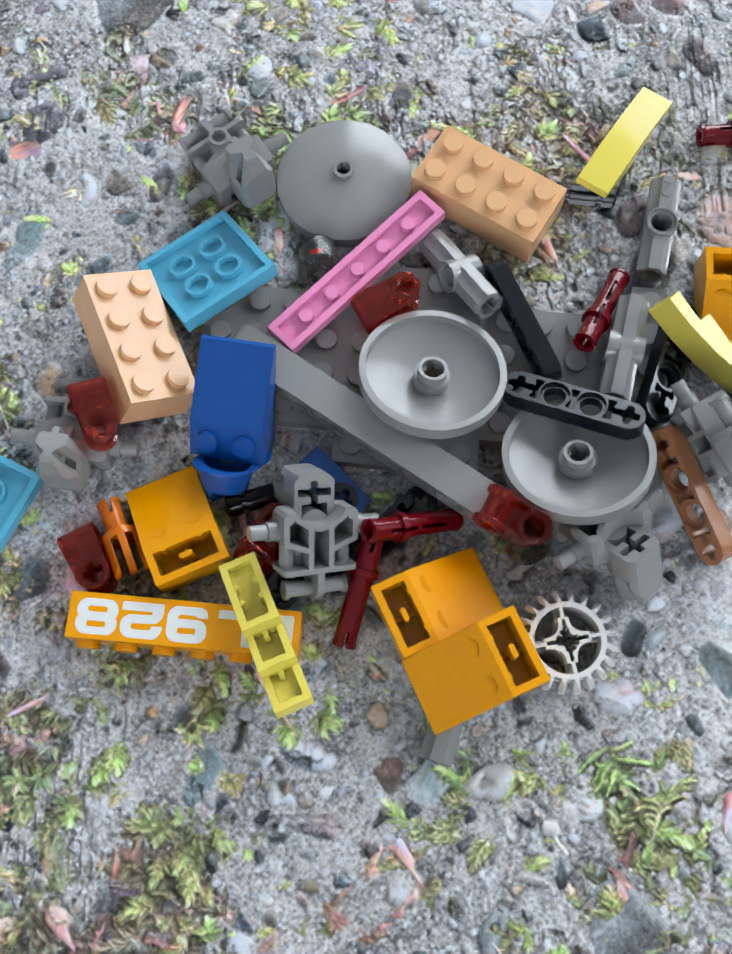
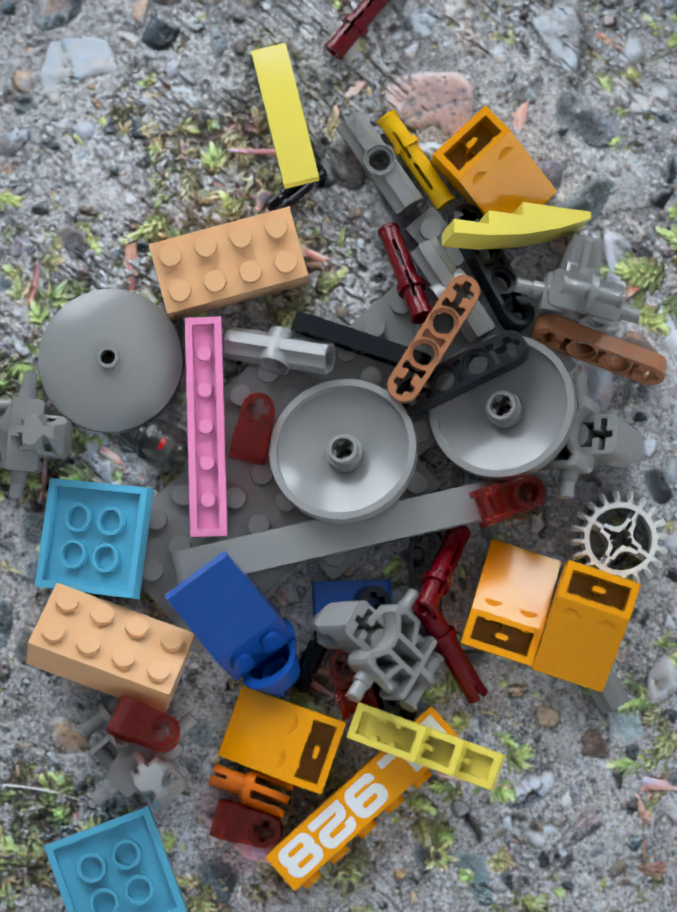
camera: 45 degrees left, 10 degrees up
(575, 354) = (436, 341): none -> nougat beam
(687, 240) = (407, 148): none -> yellow pin

